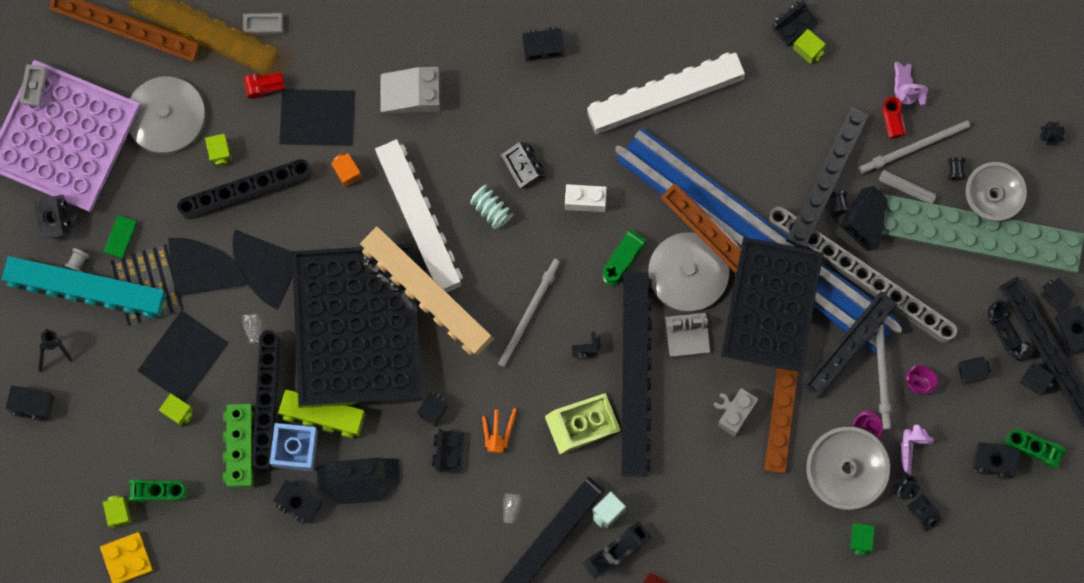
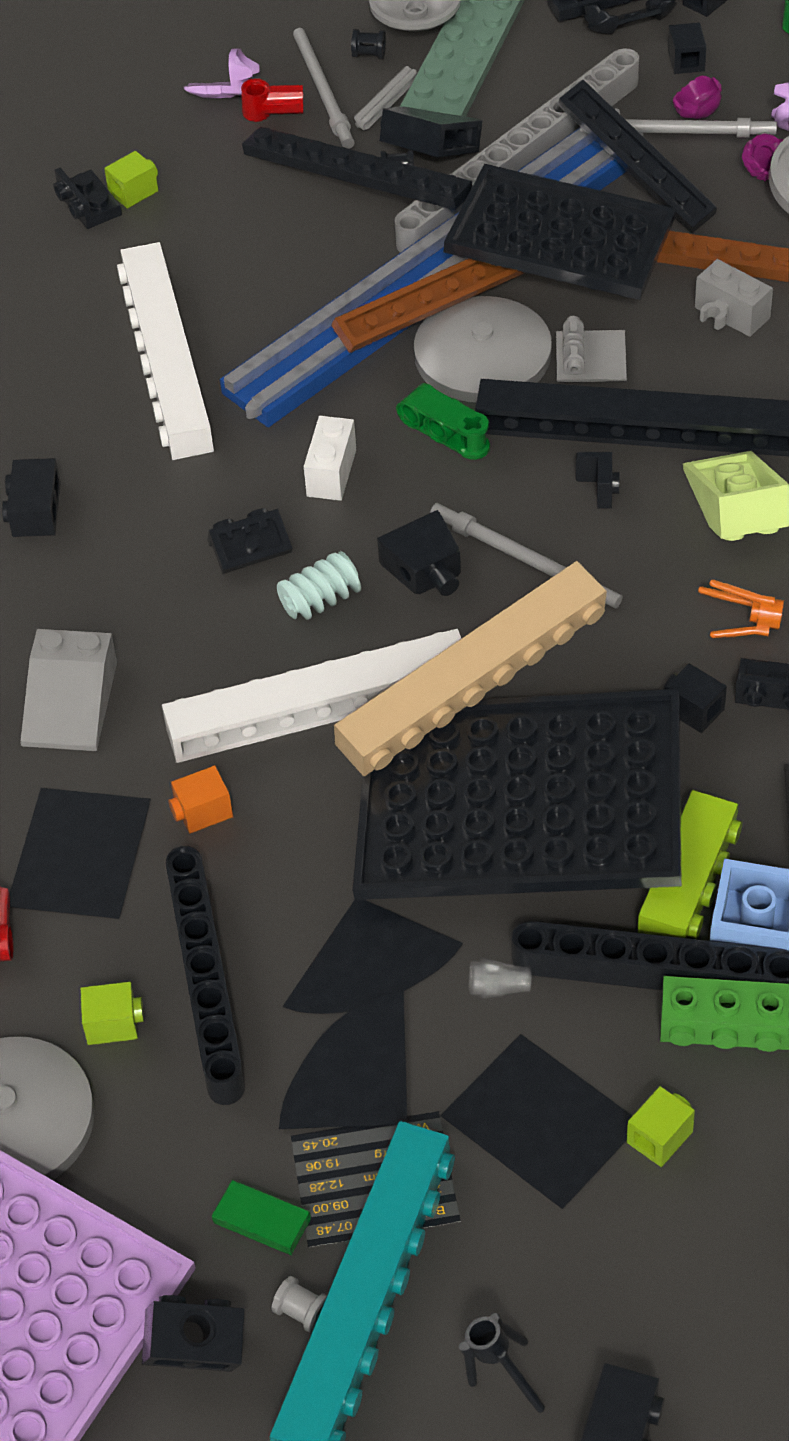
camera: 85 degrees left, 25 degrees down
(519, 259) = (422, 555): none -> black torso

